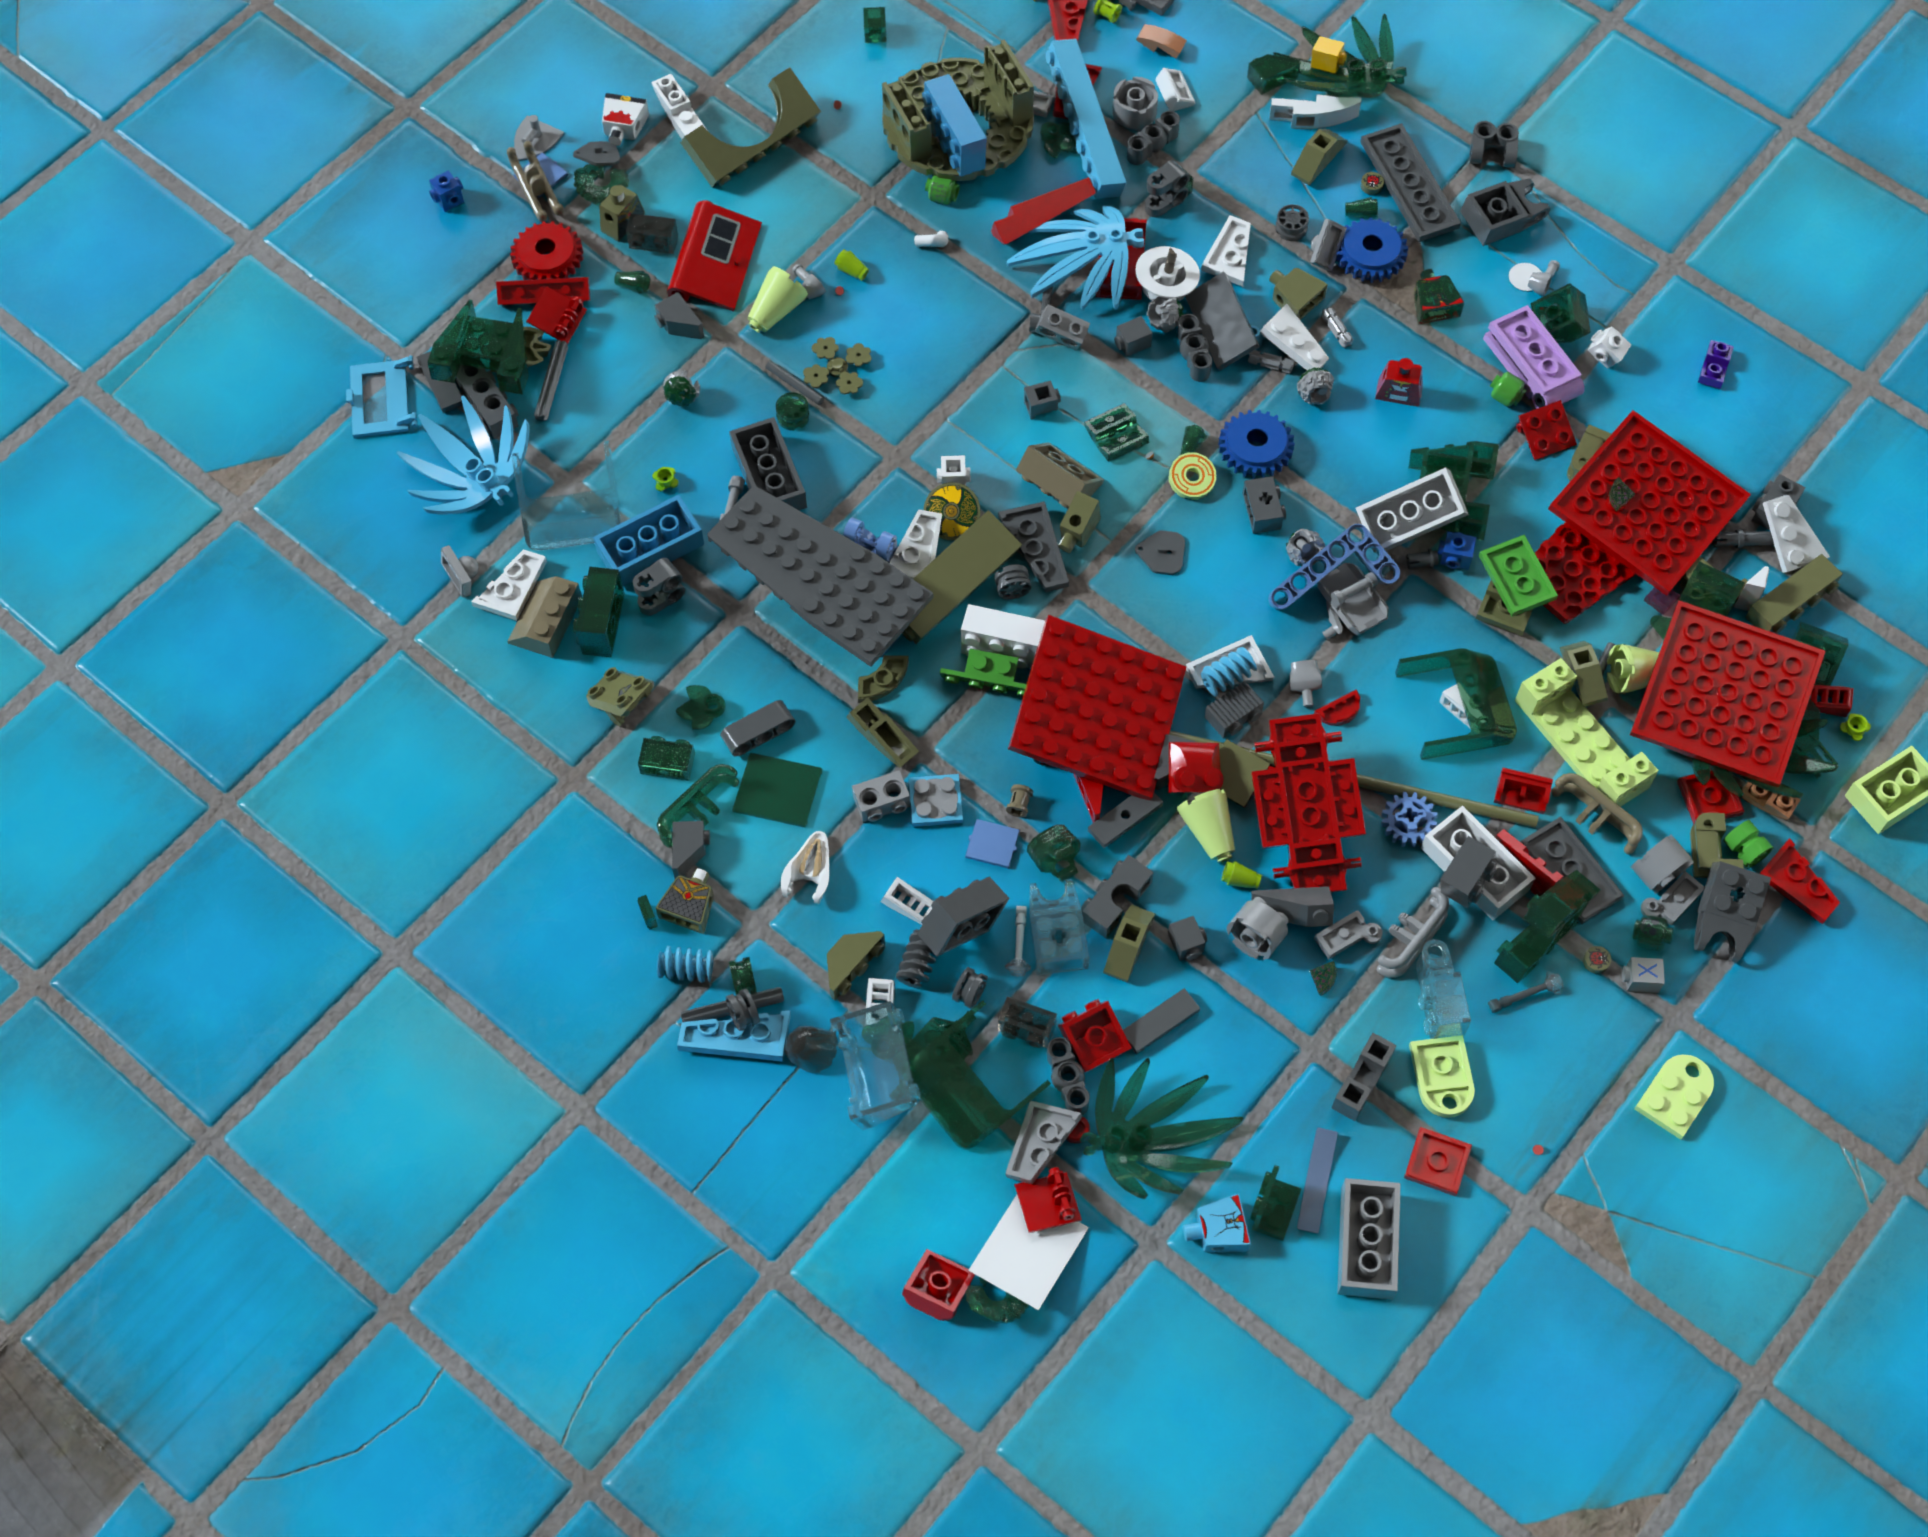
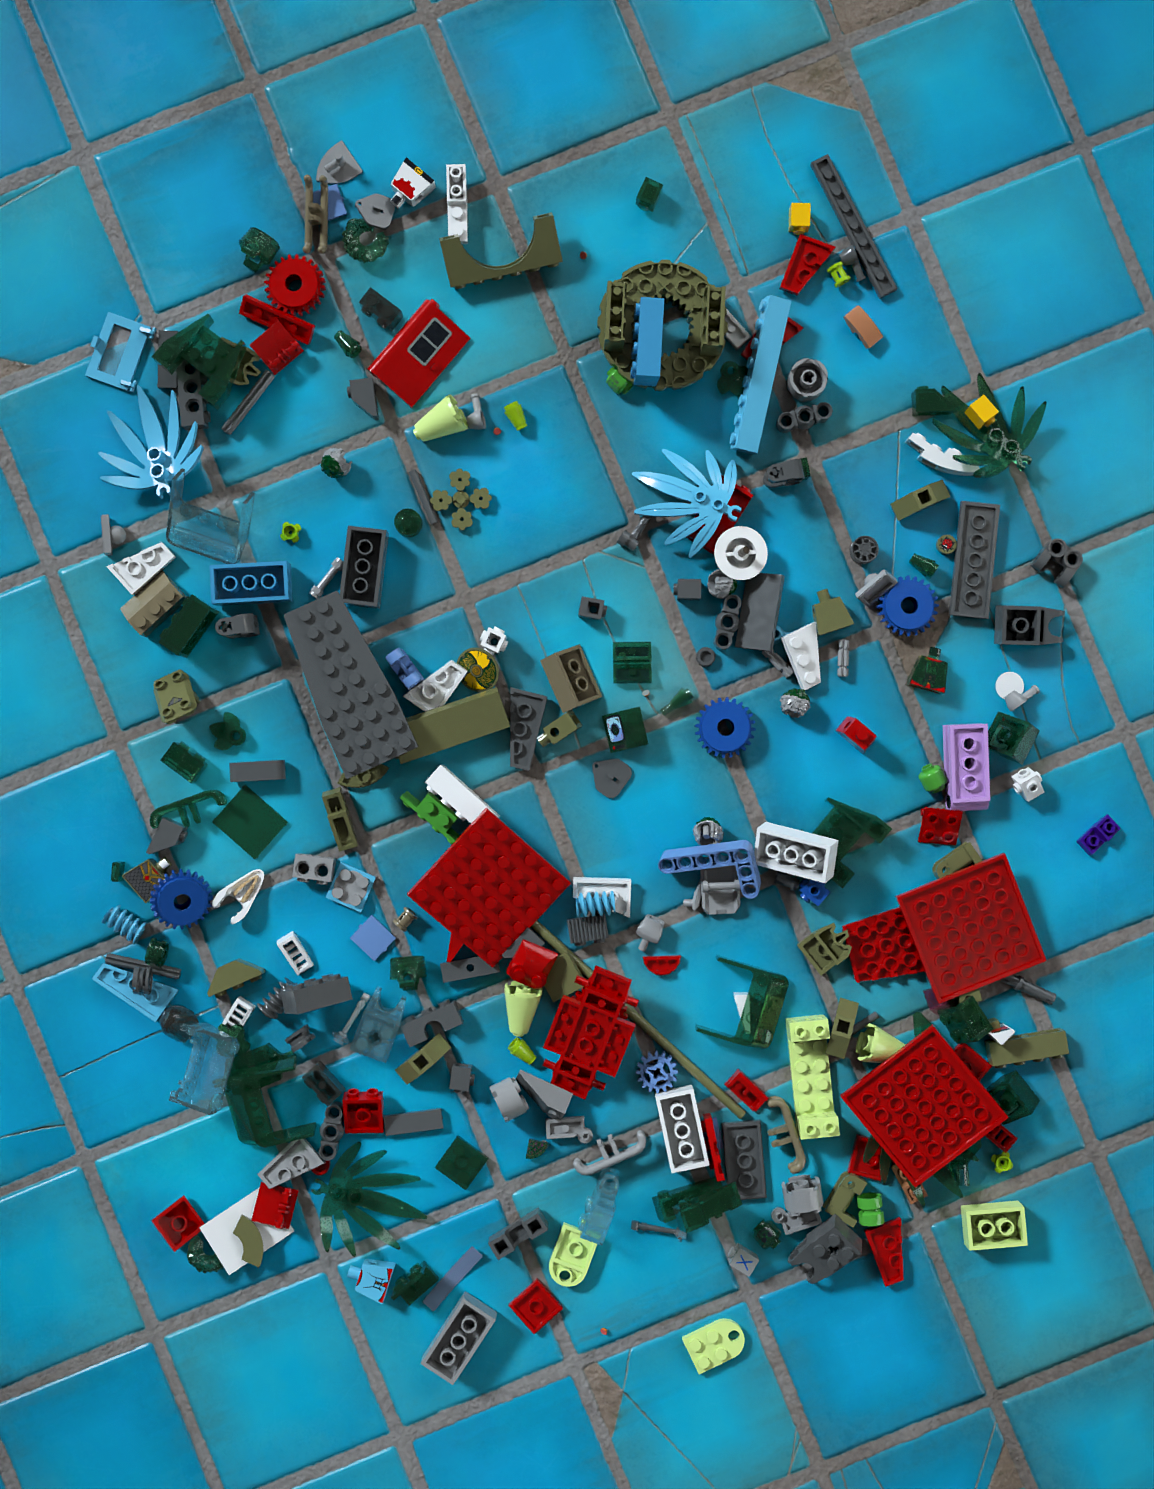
camera: 30 degrees right, 25 degrees up
(446, 190) = (245, 186): blue brick -> none
(489, 233) = (258, 243): none -> clear green piece
(616, 211) = (365, 276): olive torso -> none
(728, 912) = (176, 885): none -> blue gear
(934, 240) = (586, 424): white arm -> none
(1013, 580) = (486, 747): dark grey wheel -> none
(1038, 210) = (681, 443): red wedge -> none
(1041, 1254) = (251, 1241): none -> olive tile
(1062, 327) = (637, 558): light grey brick -> none
(1151, 494) = (625, 729): none -> clear green slope
(1174, 89) = (848, 377): white slope -> none
(1191, 392) = (705, 656): none -> dark grey tile
(1192, 489) = (664, 740): yellowish green tile -> none
(1229, 251) = (802, 551): white wing -> none
(1245, 1039) = (461, 1162): none -> clear green plate
(1263, 504) = (699, 769): dark grey brick -> none
(1468, 872) = (661, 1148): dark grey brick -> none
(1518, 575) = (838, 940): bright green plate -> none
(1597, 959) = (720, 1230): tile -> none
(1620, 494) = (950, 916): tile -> none
(1781, 487) = (1064, 971): dark grey brick -> none
(1791, 534) = (1055, 1004): white wing -> none

